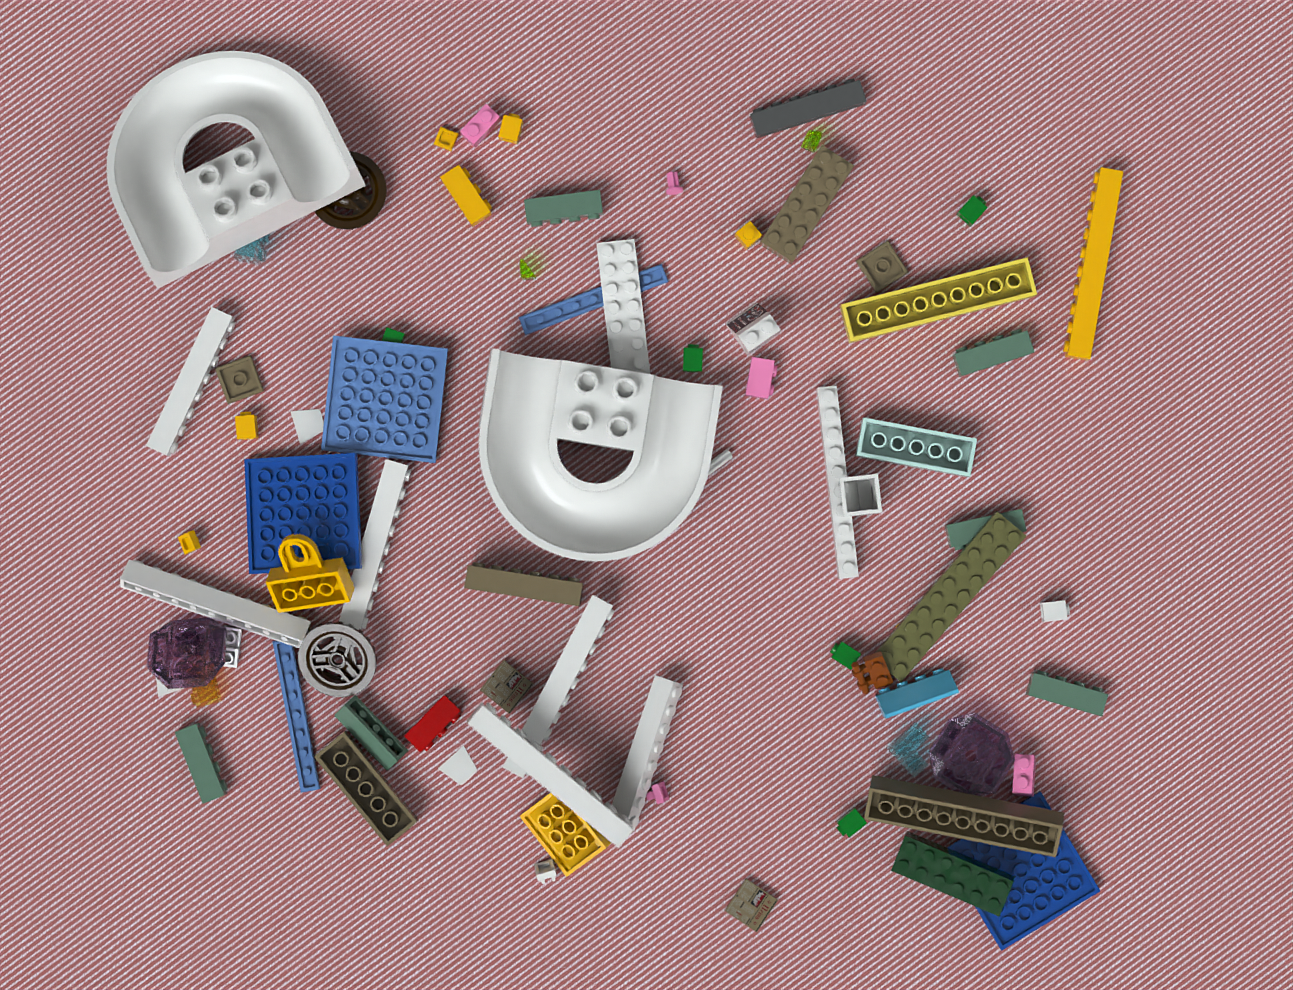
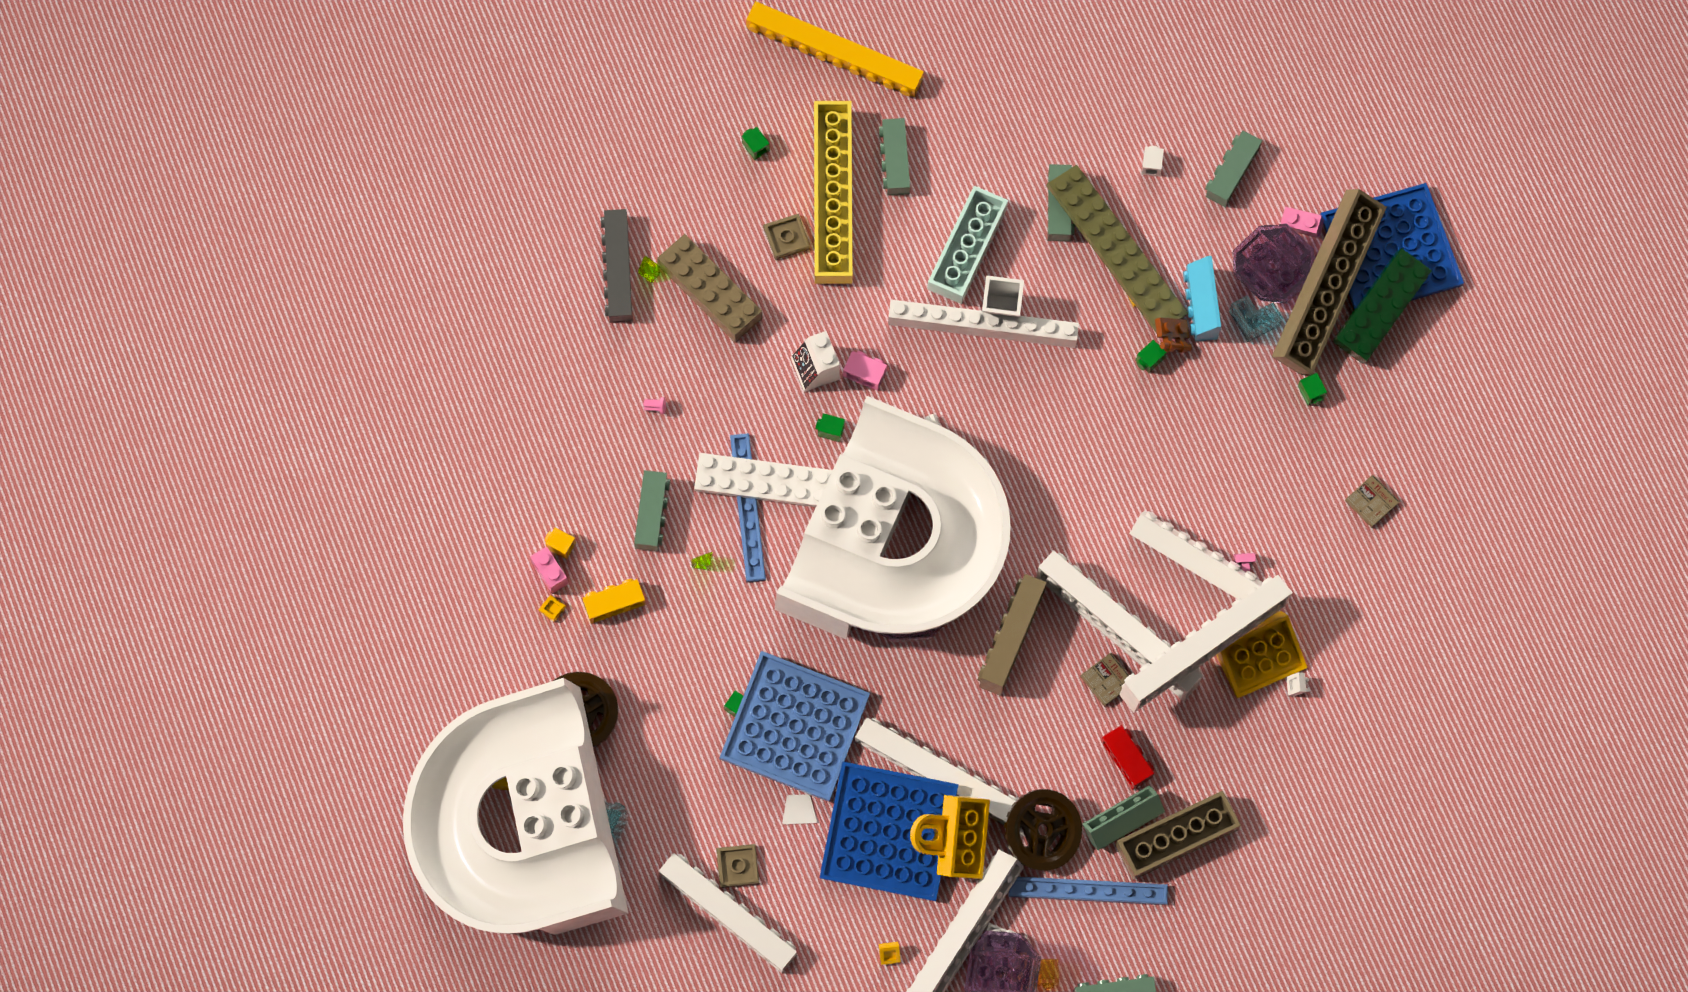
camera: 75 degrees left, 15 degrees down
(246, 426) = (787, 868): yellow brick -> none
(459, 766) = (1176, 745): white sticker -> none
(748, 235) = (724, 347): yellow brick -> none

